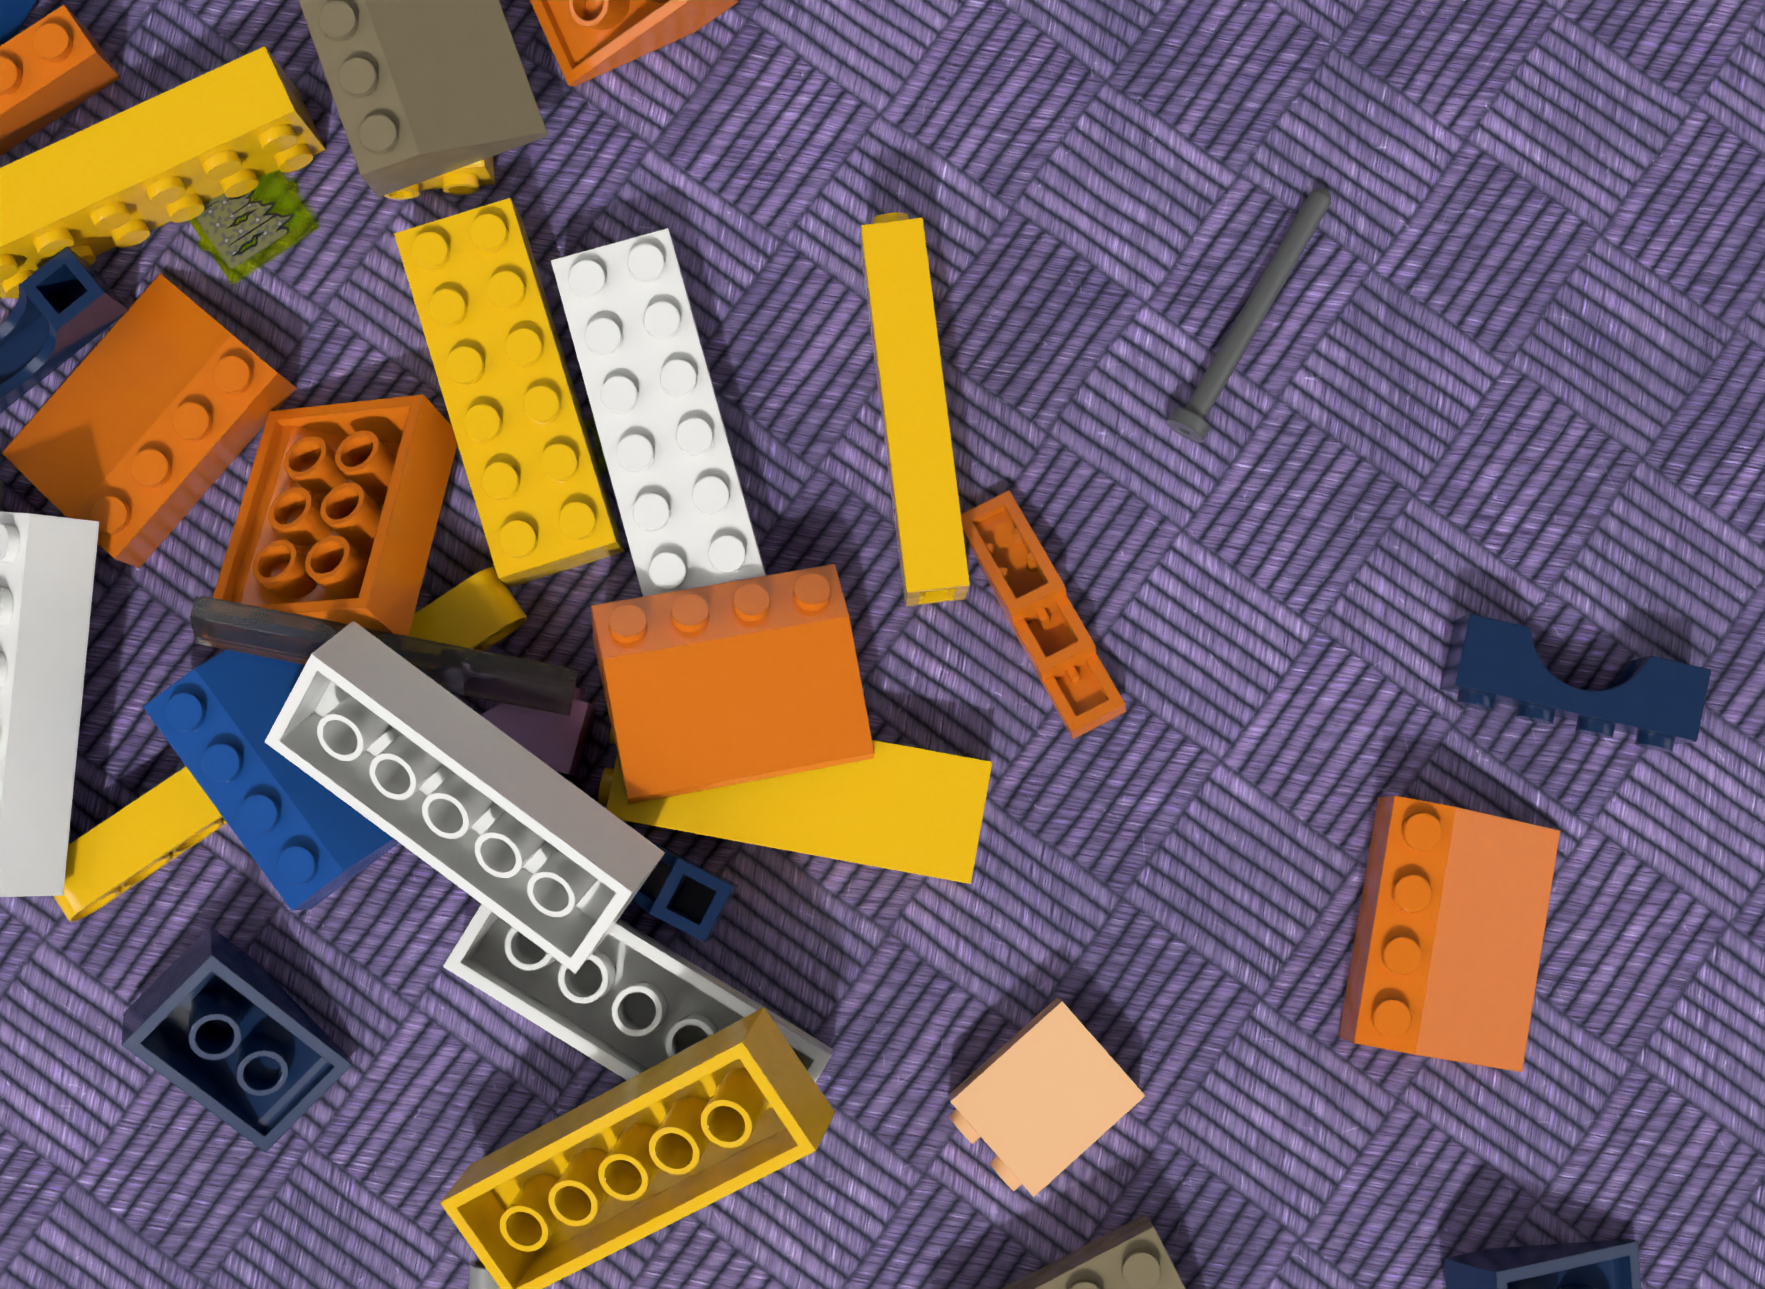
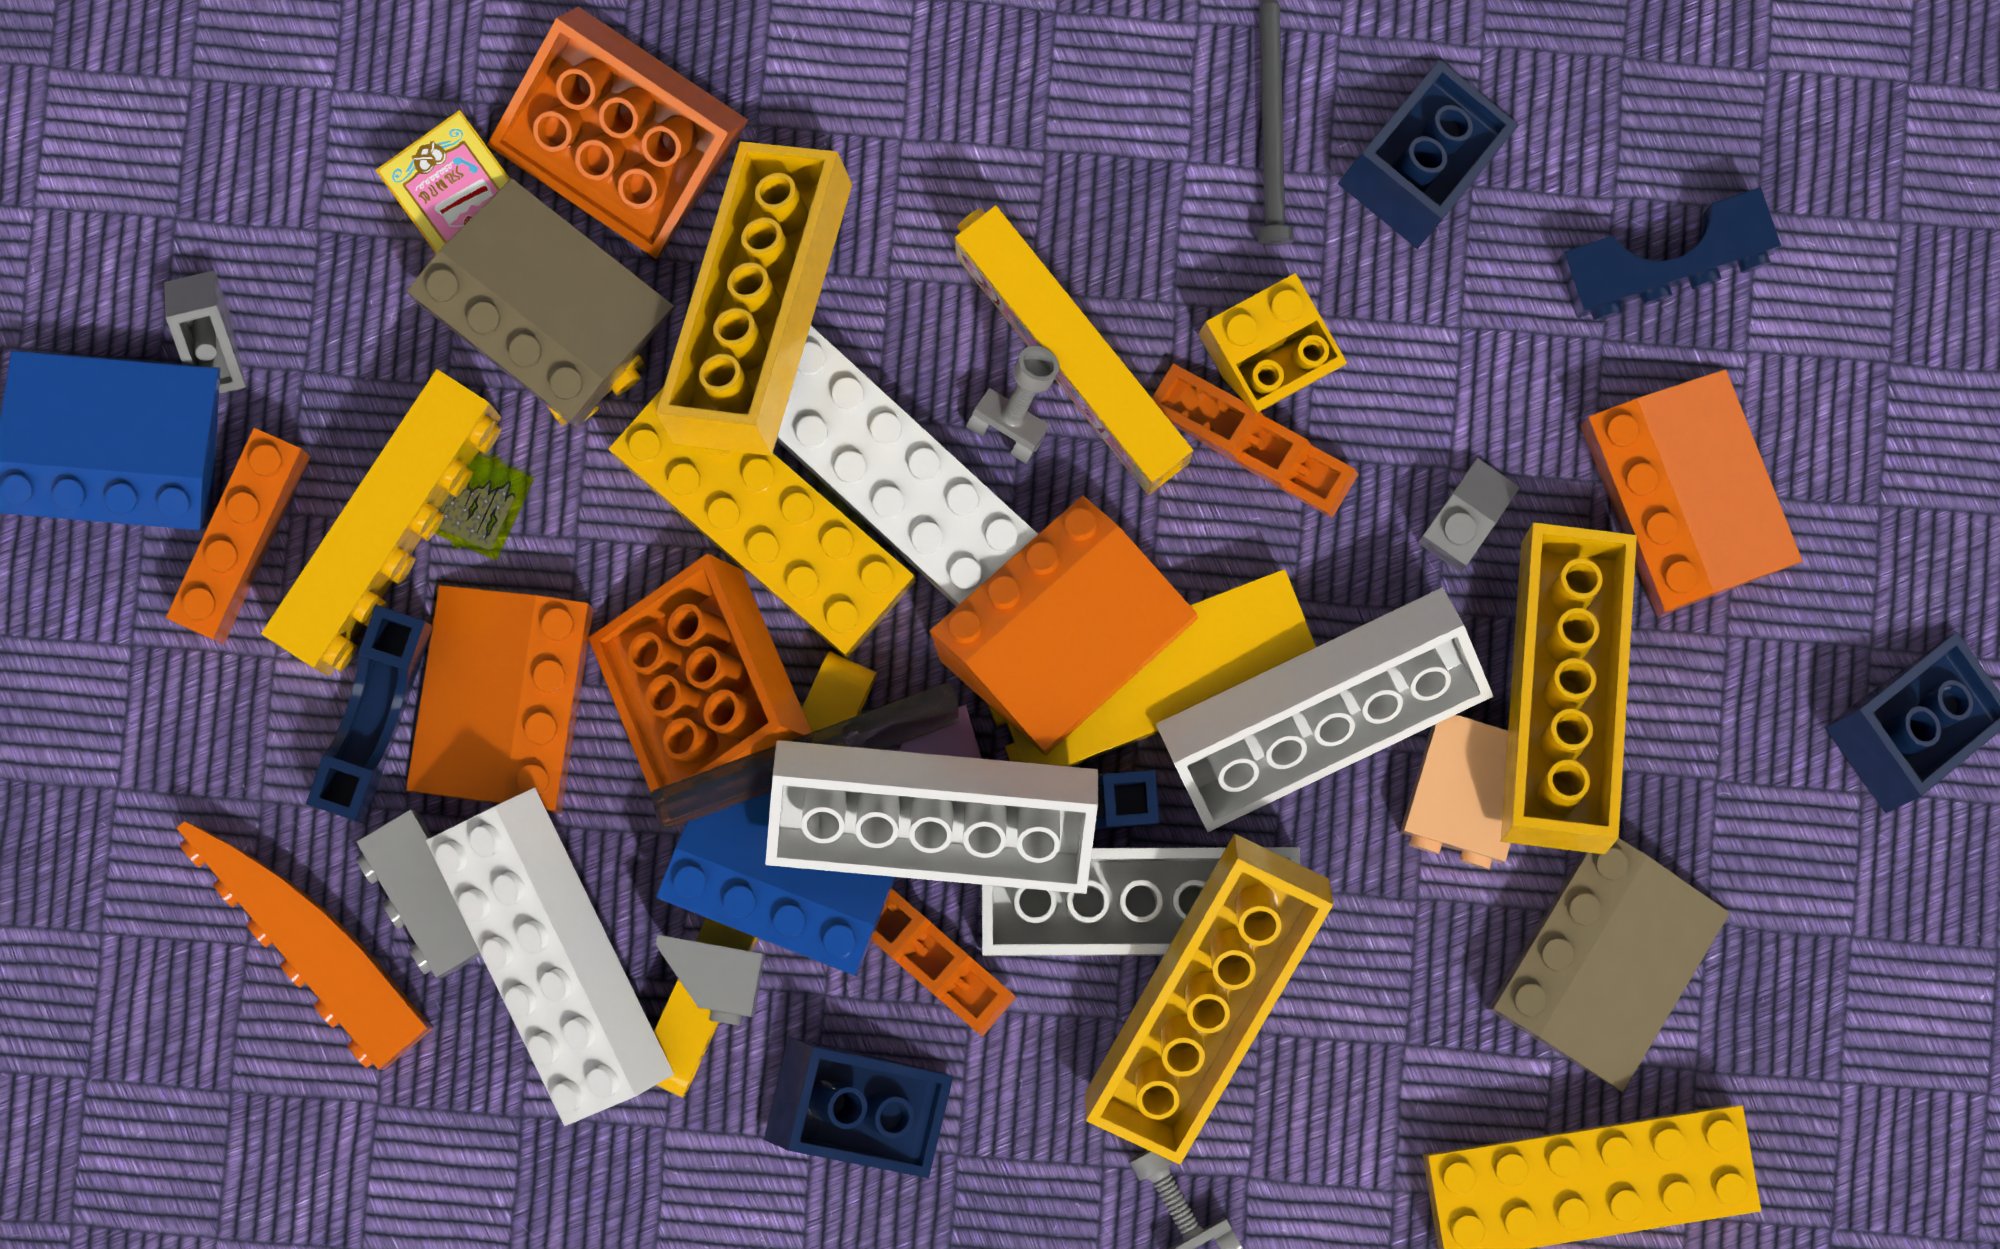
camera: 30 degrees left, 0 degrees up
(162, 821) = (716, 976): none -> light grey slope
(406, 945) = (940, 965): none -> orange slope
(623, 169) = (754, 298): none -> yellow brick
(855, 410) = (1034, 374): none -> light grey bar
(943, 930) = (1325, 709): none -> white brick
(1118, 528) = (1271, 344): none -> yellow slope
(1205, 1065) = (1569, 689): none -> yellow brick
(1212, 820) = (1469, 515): none -> light grey slope
(1389, 435) = (1428, 154): none -> dark blue slope

